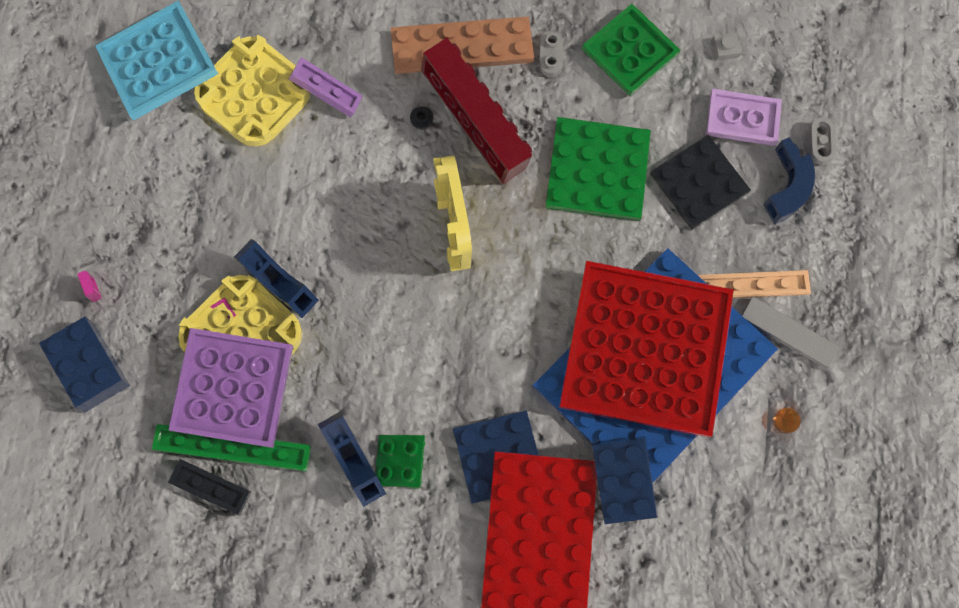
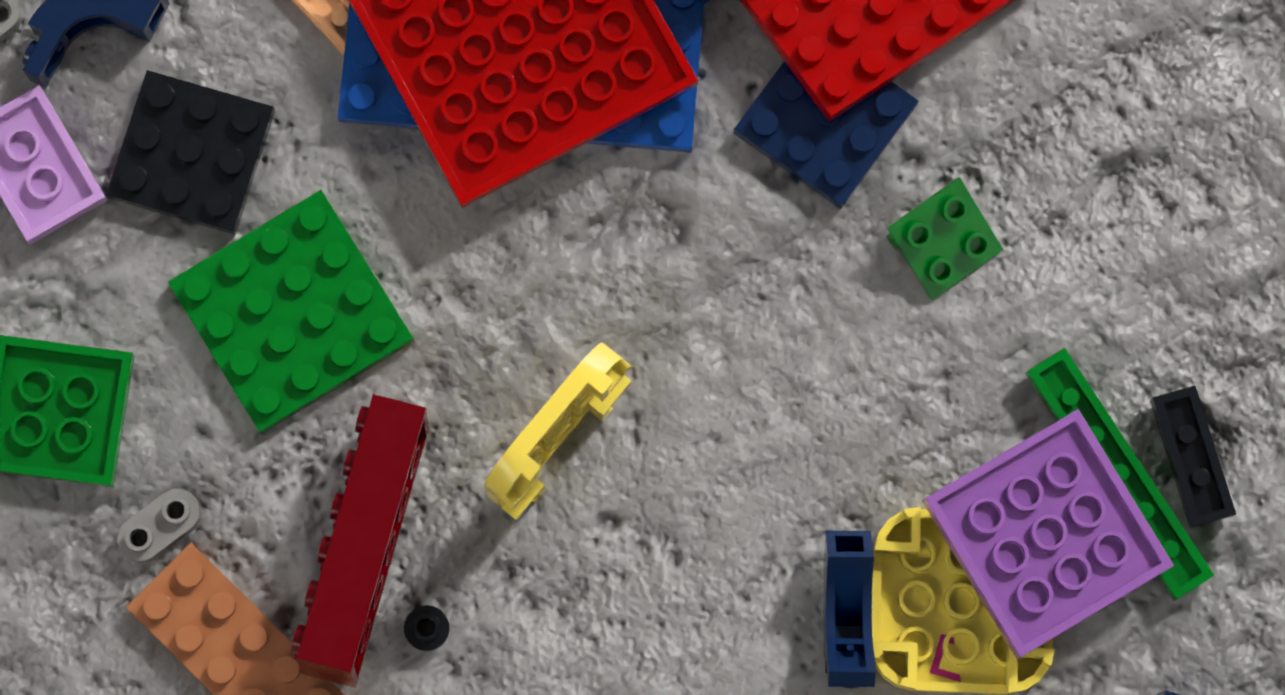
camera: 125 degrees left, 5 degrees up
(351, 459) = (1000, 293): dark blue arch -> none

